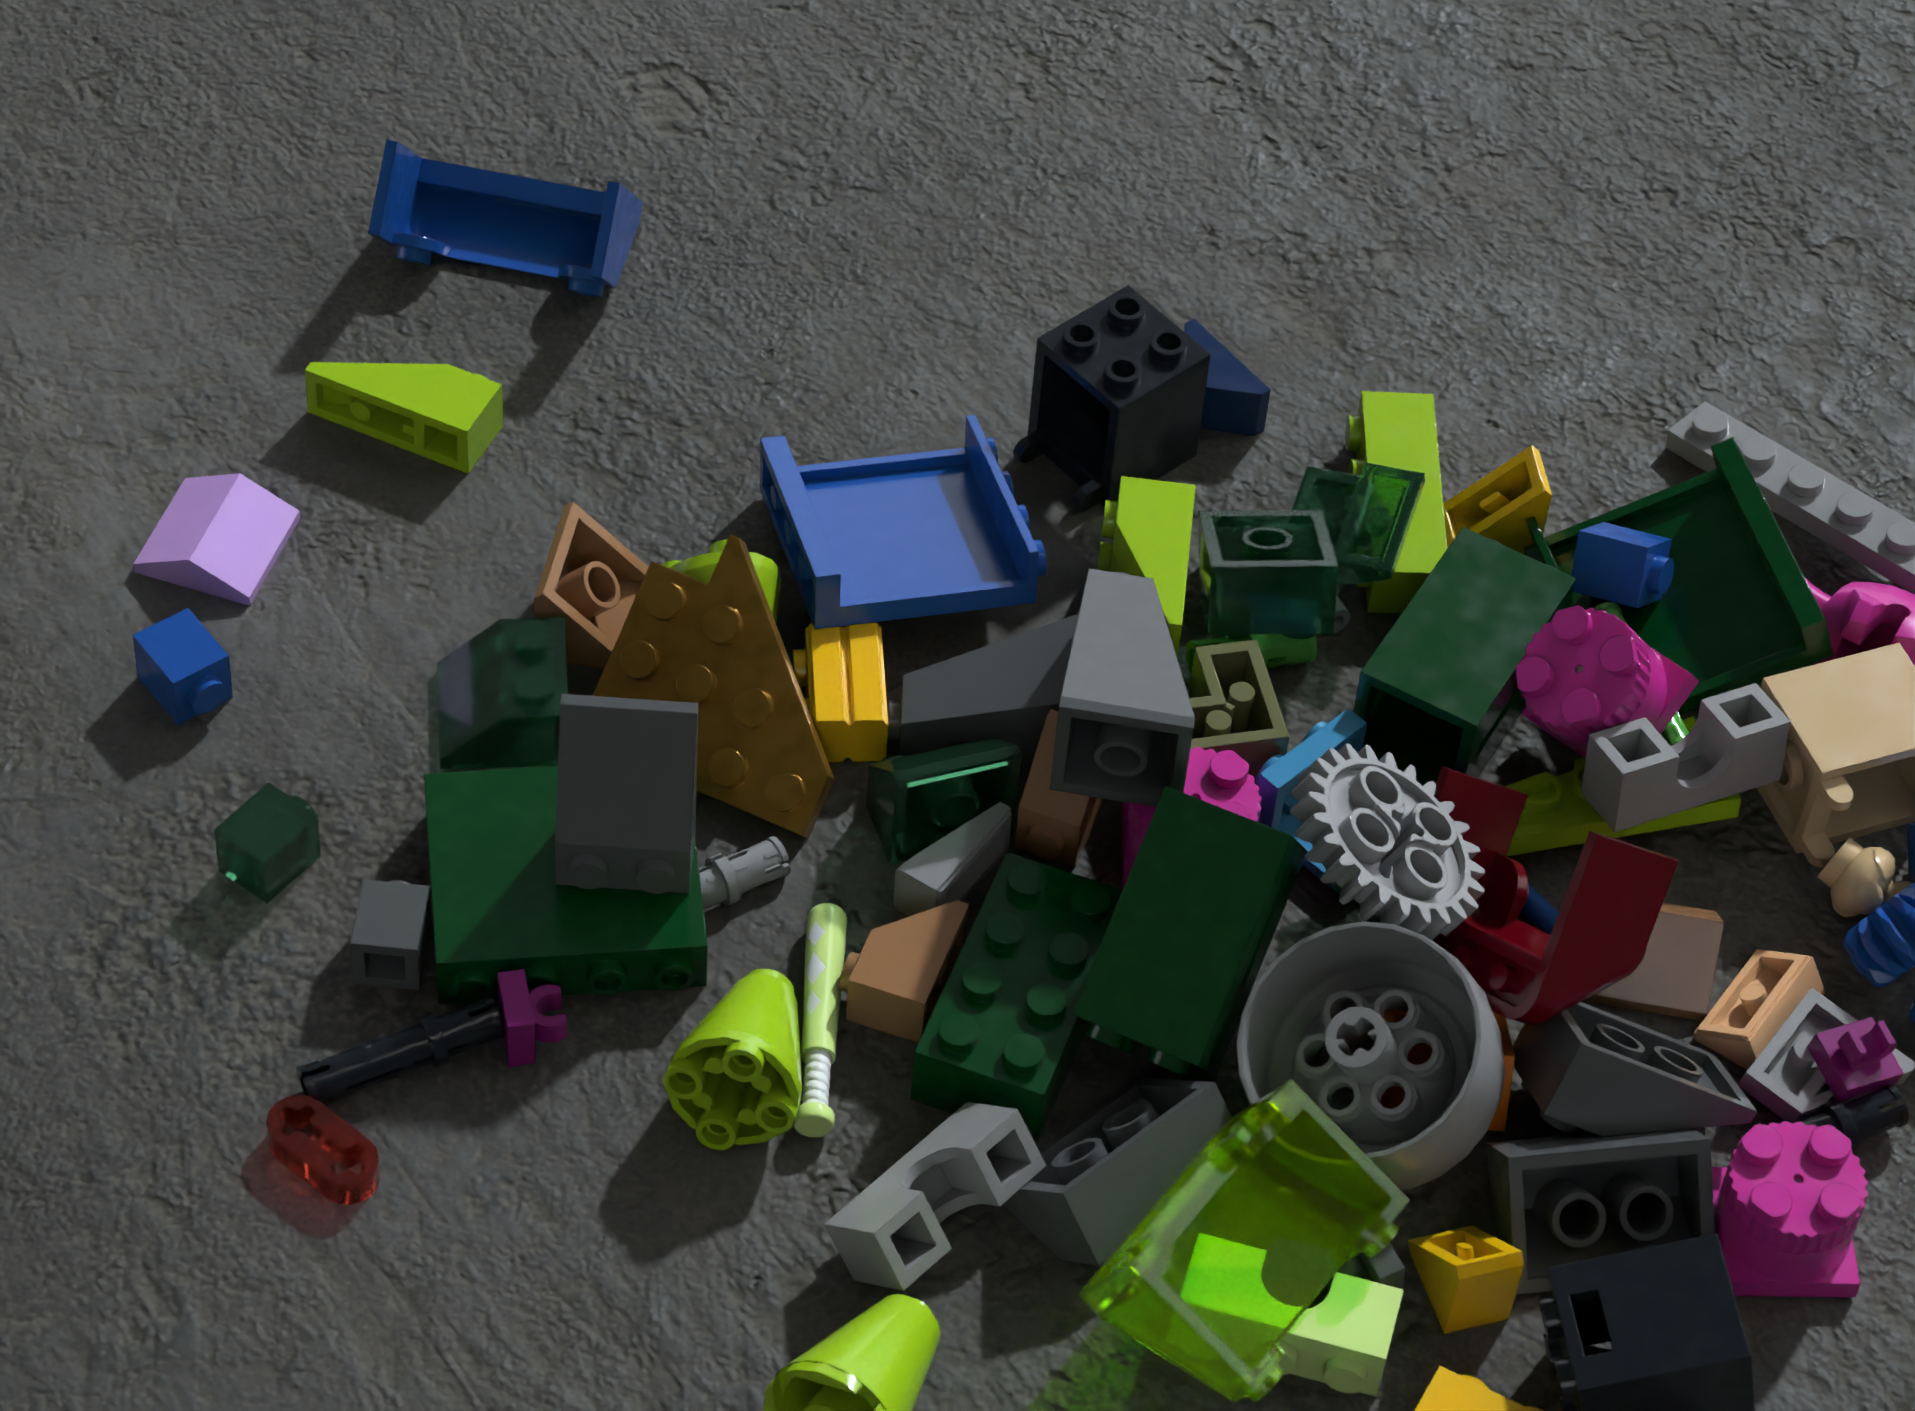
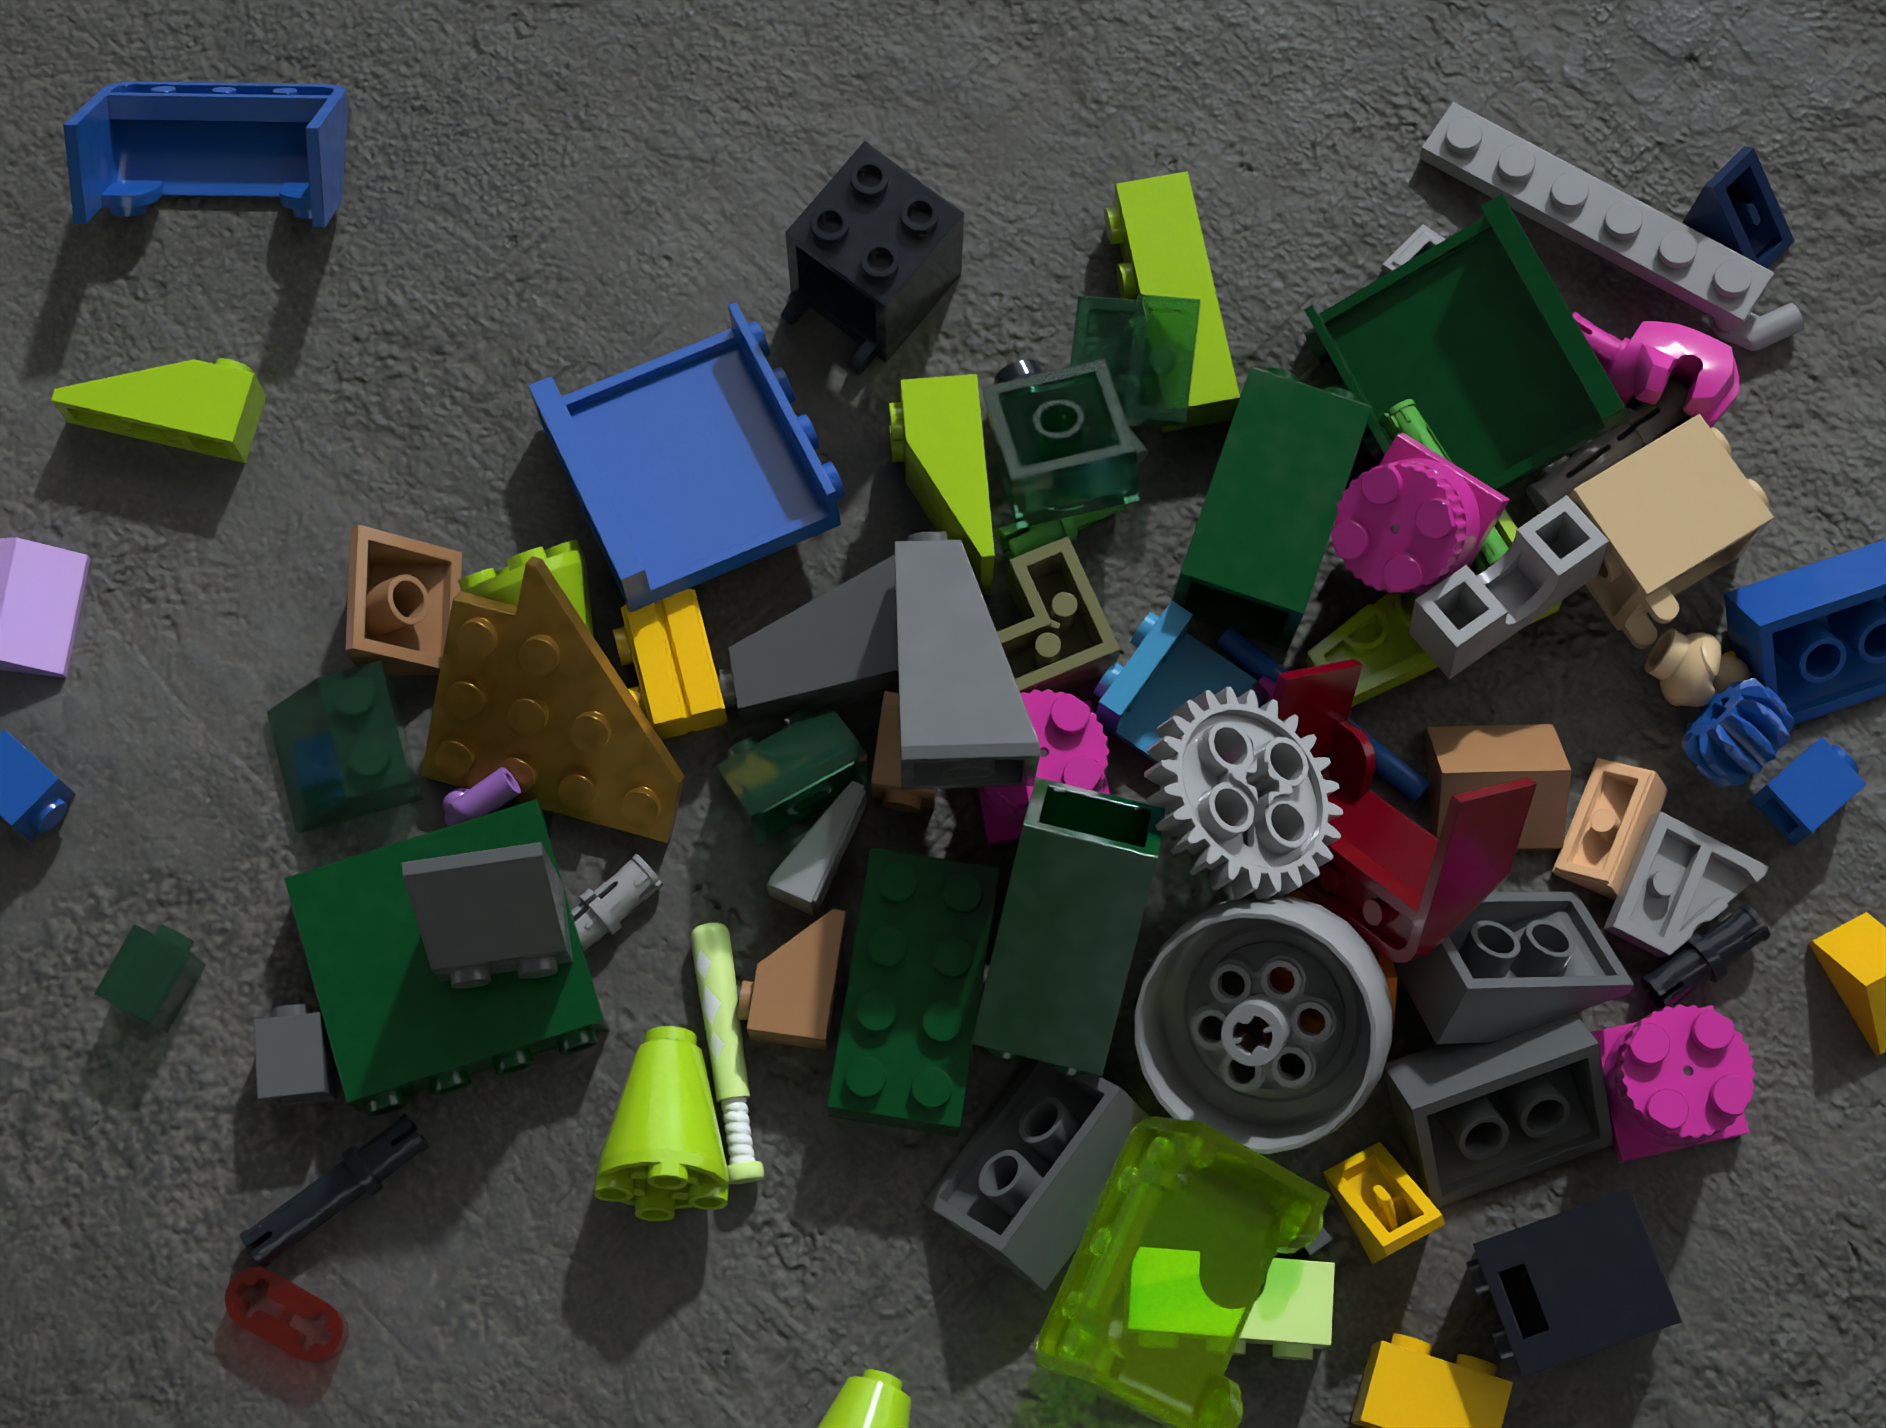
camera: 10 degrees left, 25 degrees up
(523, 1016) = (440, 1127): magenta tile -> none
(970, 1159) = (893, 1202): light grey arch -> none
(1234, 395) = (986, 203): dark blue slope -> none
(1503, 502) = (1272, 292): yellow slope -> none
(1622, 565) = (1409, 354): blue brick -> none
(1856, 1058) = (1714, 887): magenta tile -> none

